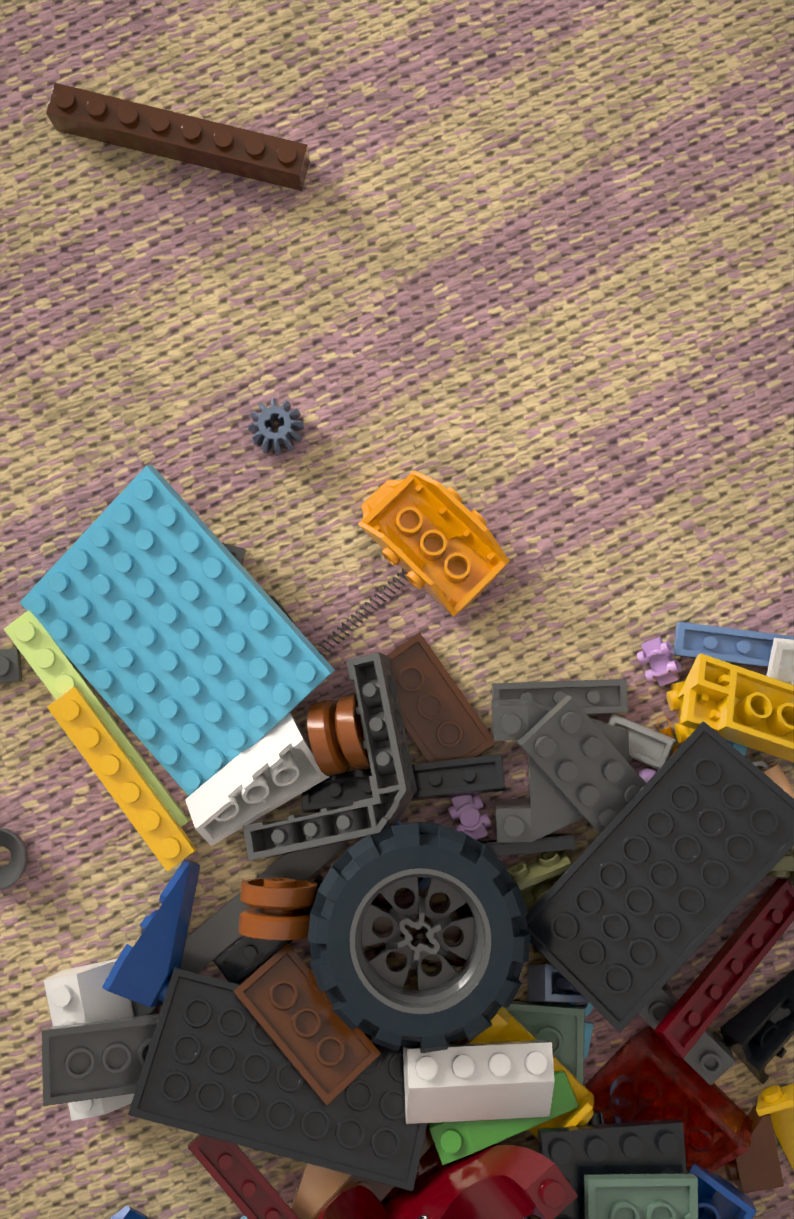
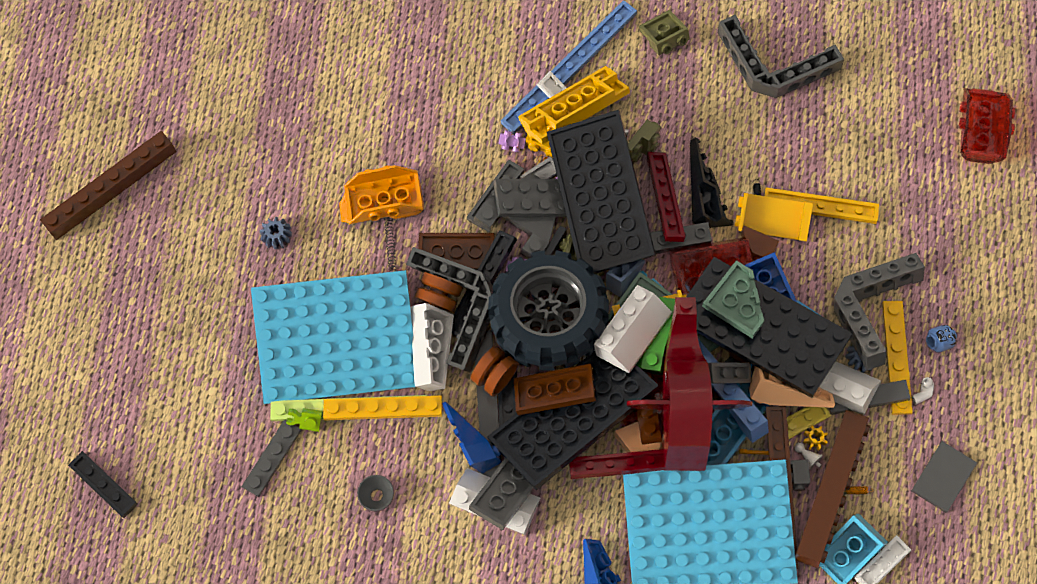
camera: 50 degrees left, 15 degrees down
(35, 681) = (308, 419): none -> lime plate

